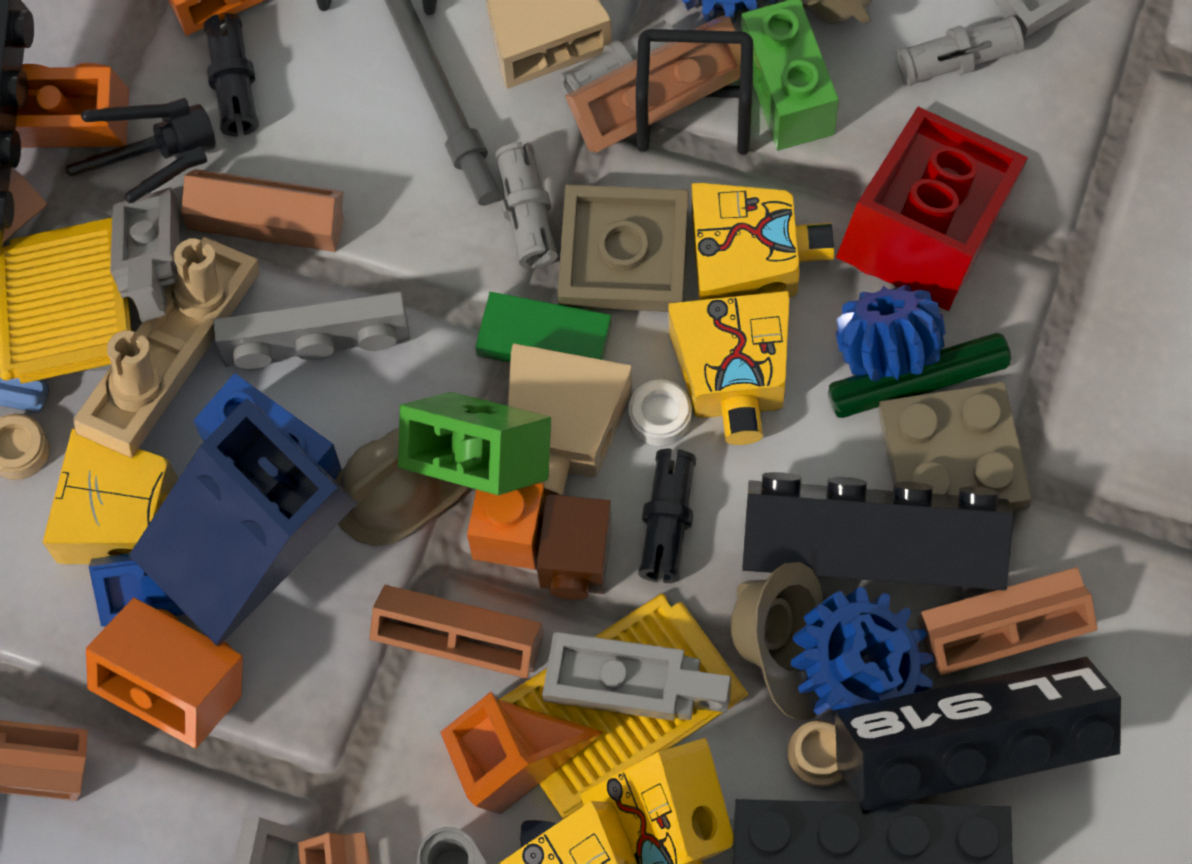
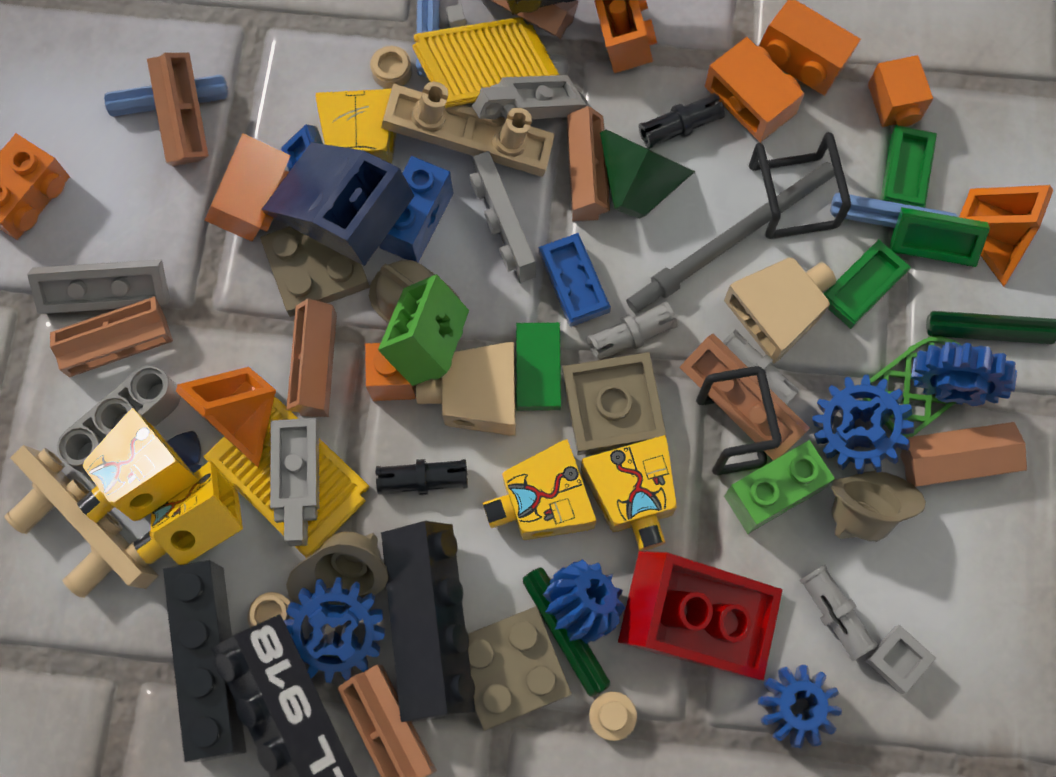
camera: 75 degrees right, 5 degrees up
(181, 134) = (625, 97): black plant -> none
(296, 142) = (639, 175): none -> dark green slope
(312, 618) = (310, 269): none -> dark tan plate
(432, 259) = (574, 280): none -> blue plate
(574, 546) = (383, 419): reddish brown brick -> none
(660, 412) = (497, 454): white tile -> none
(1041, 340) = (613, 716): none -> tan plate
(1070, 118) = (814, 715): none -> blue gear

